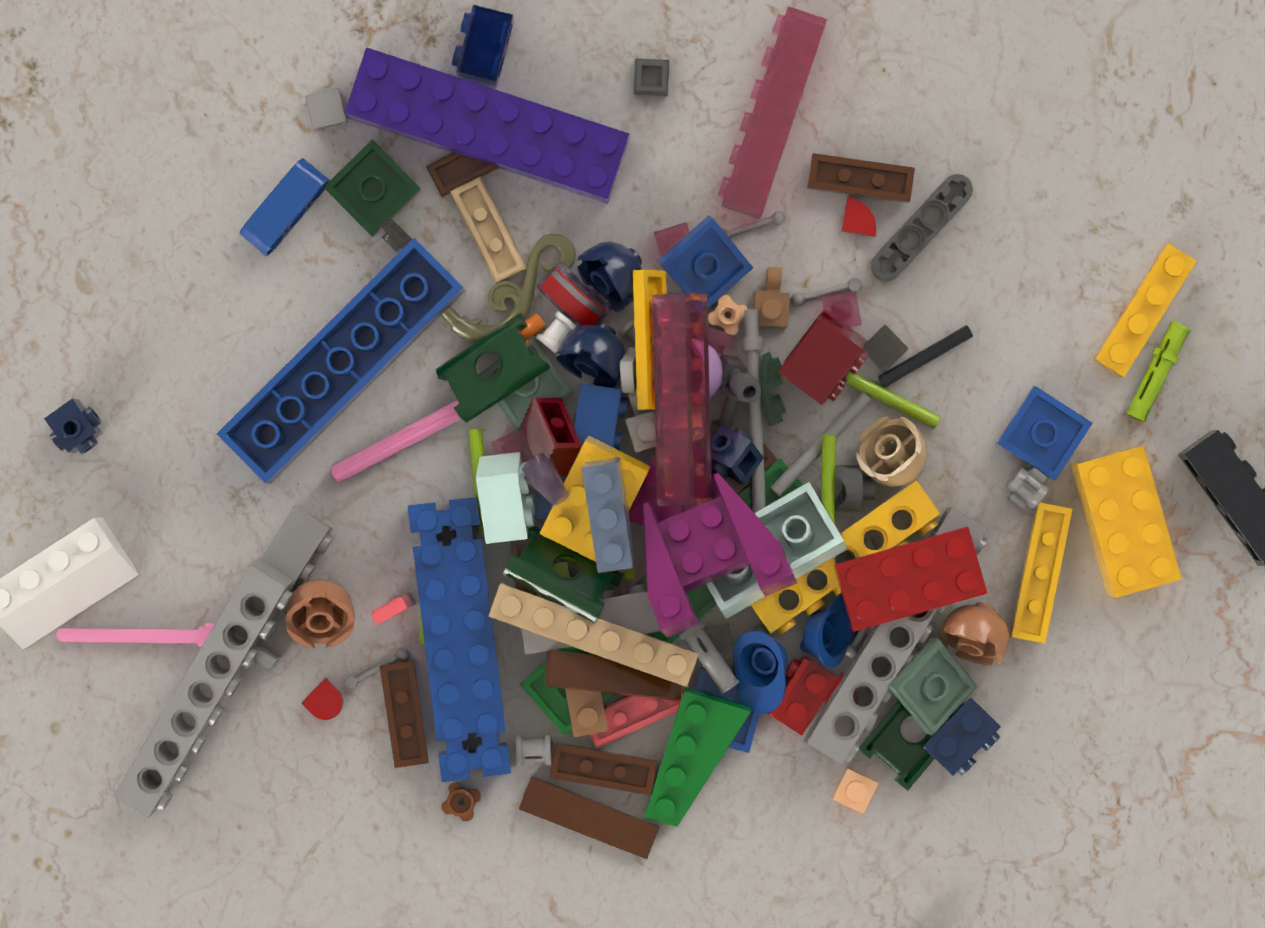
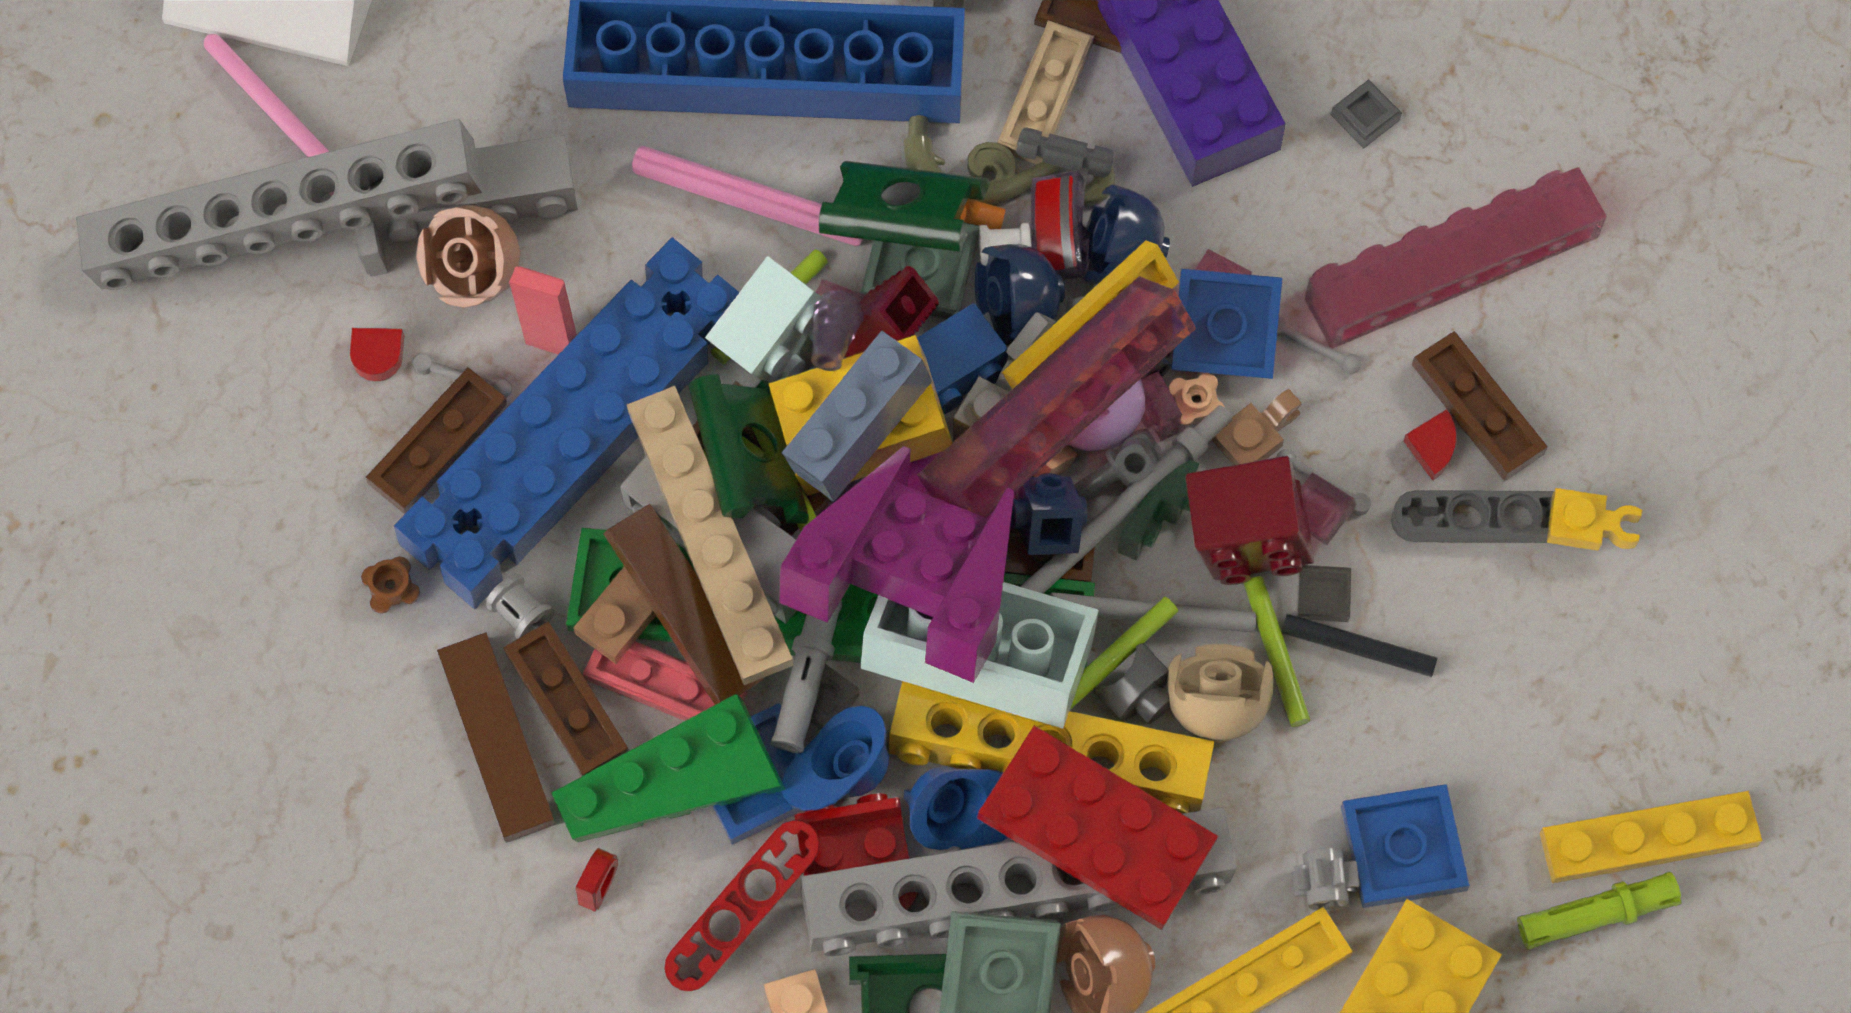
camera: 50 degrees right, 20 degrees down
(536, 256) = (1065, 152): none -> dark grey axle
(708, 832) = (596, 879): none -> red tile
(788, 777) = (747, 909): none -> red beam
(969, 189) = (1583, 521): none -> yellow plate

